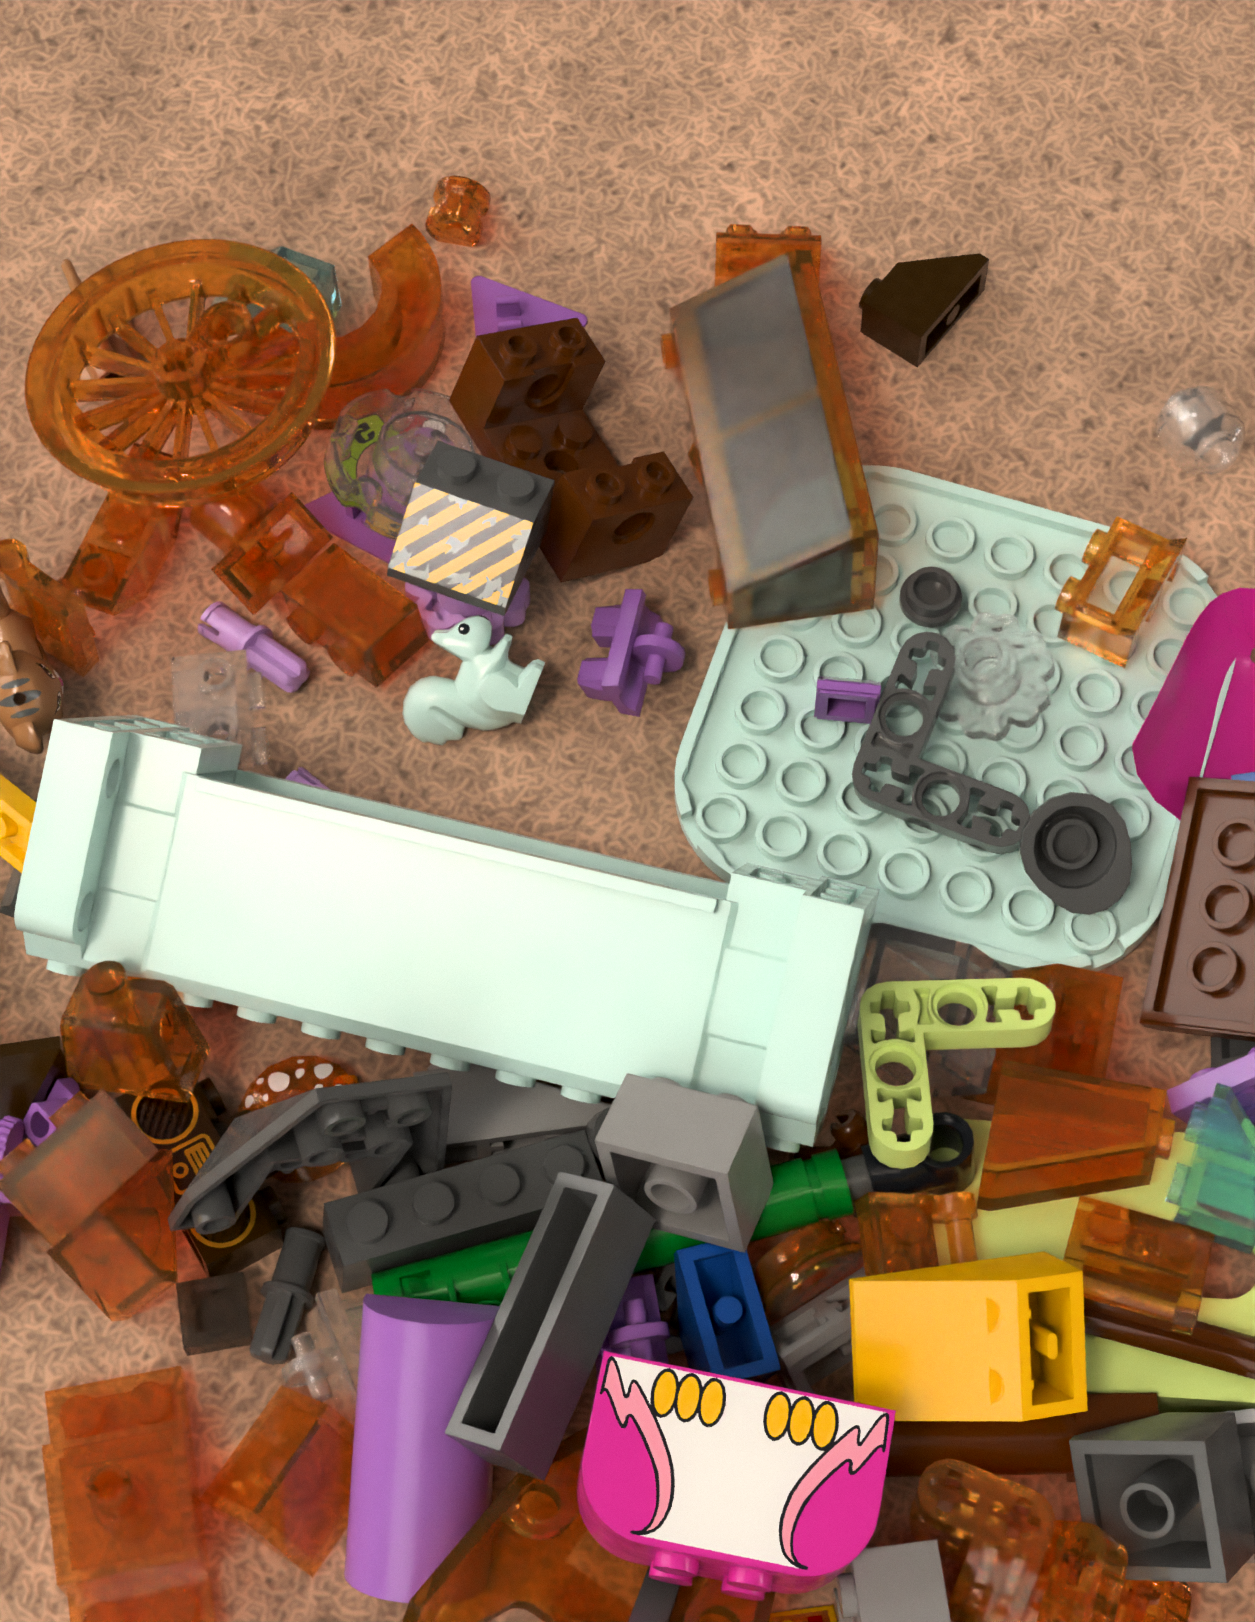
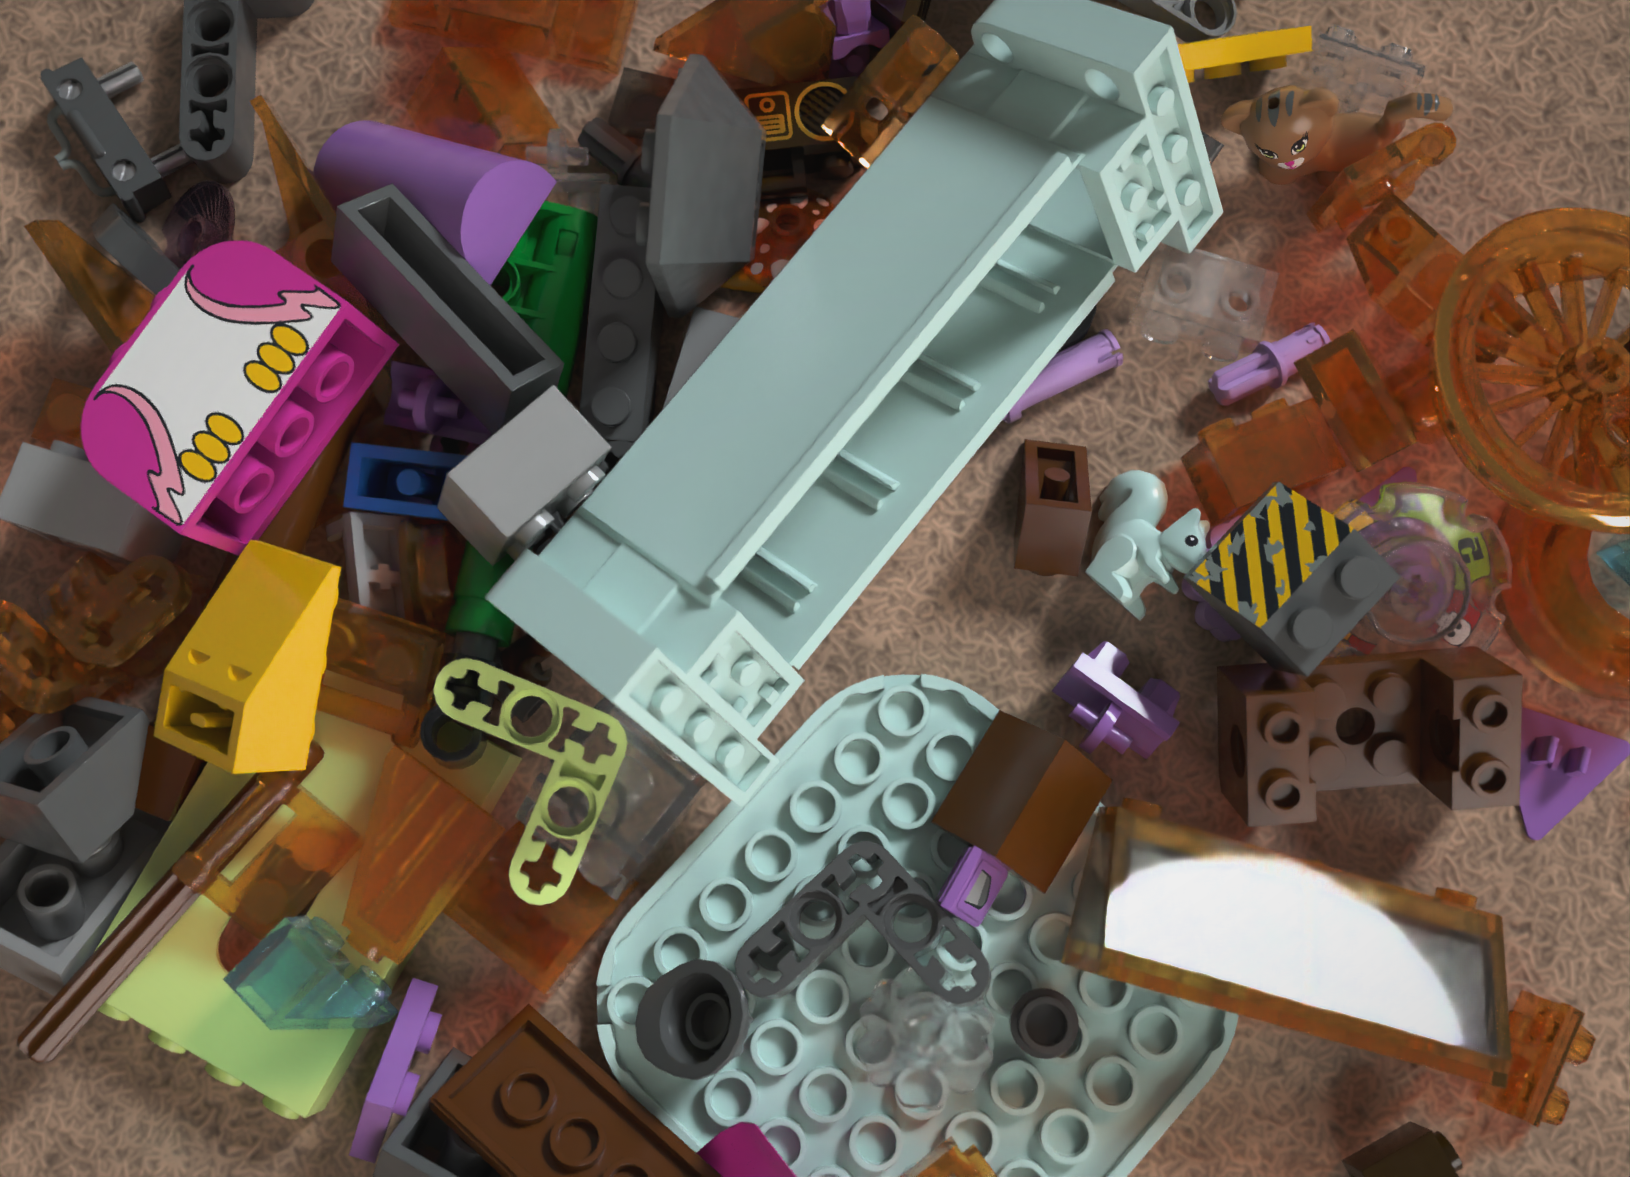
camera: 115 degrees right, 15 degrees up
(475, 767) = (1052, 508): none -> reddish brown slope
(752, 689) = (1023, 799): none -> reddish brown slope

